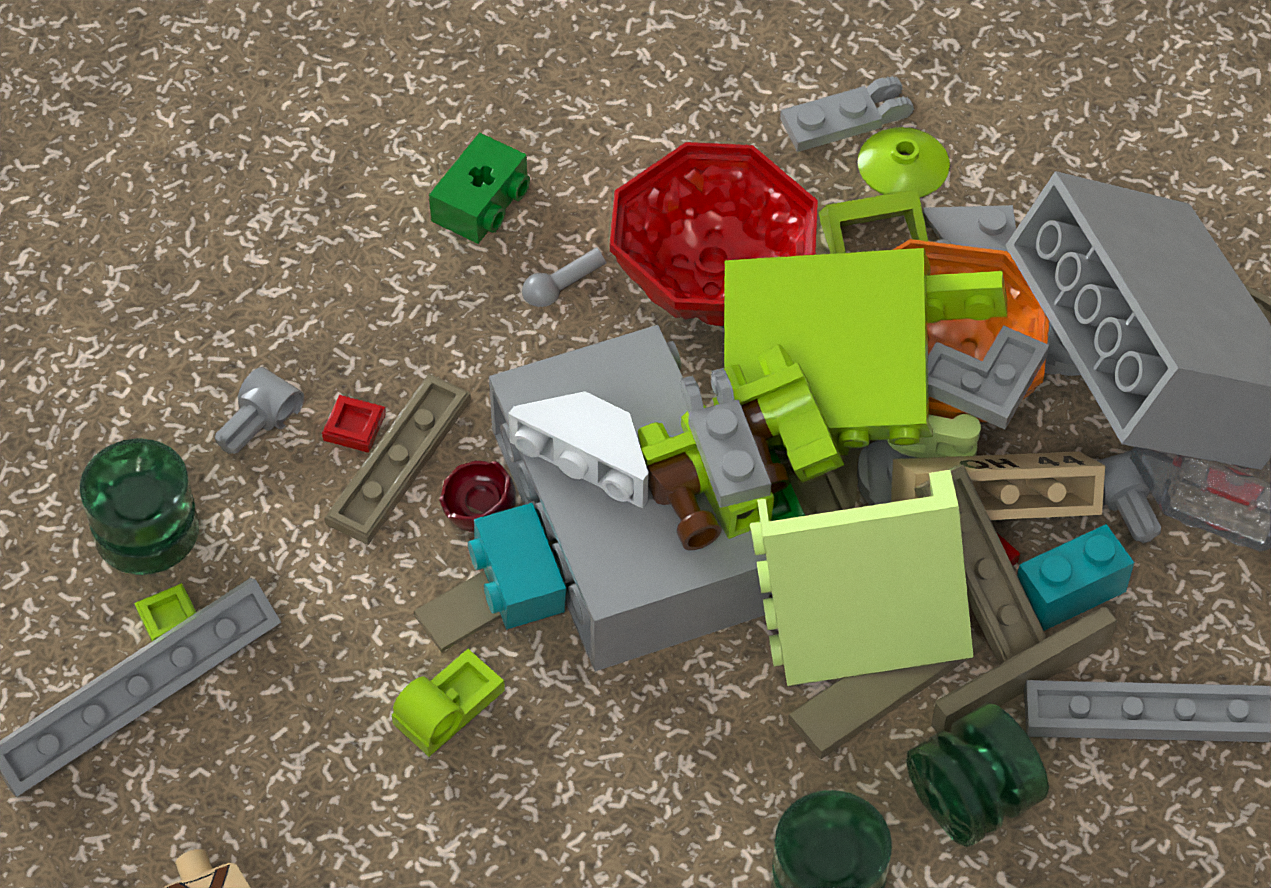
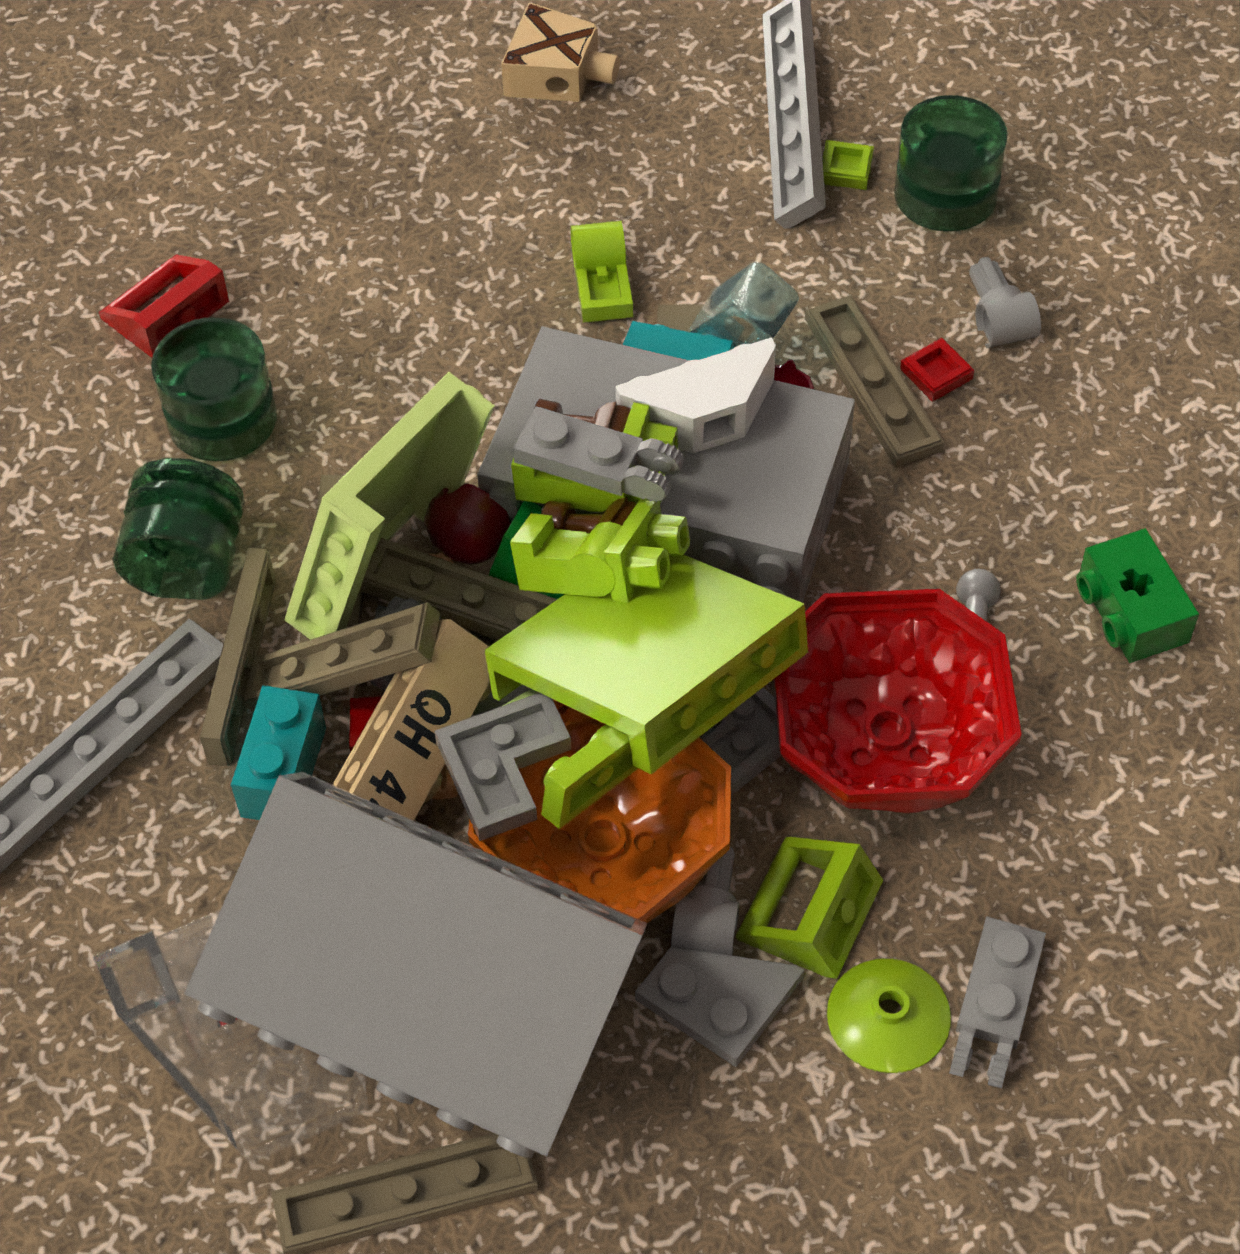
camera: 130 degrees right, 0 degrees up
(438, 538) = (757, 294): none -> clear light blue piece

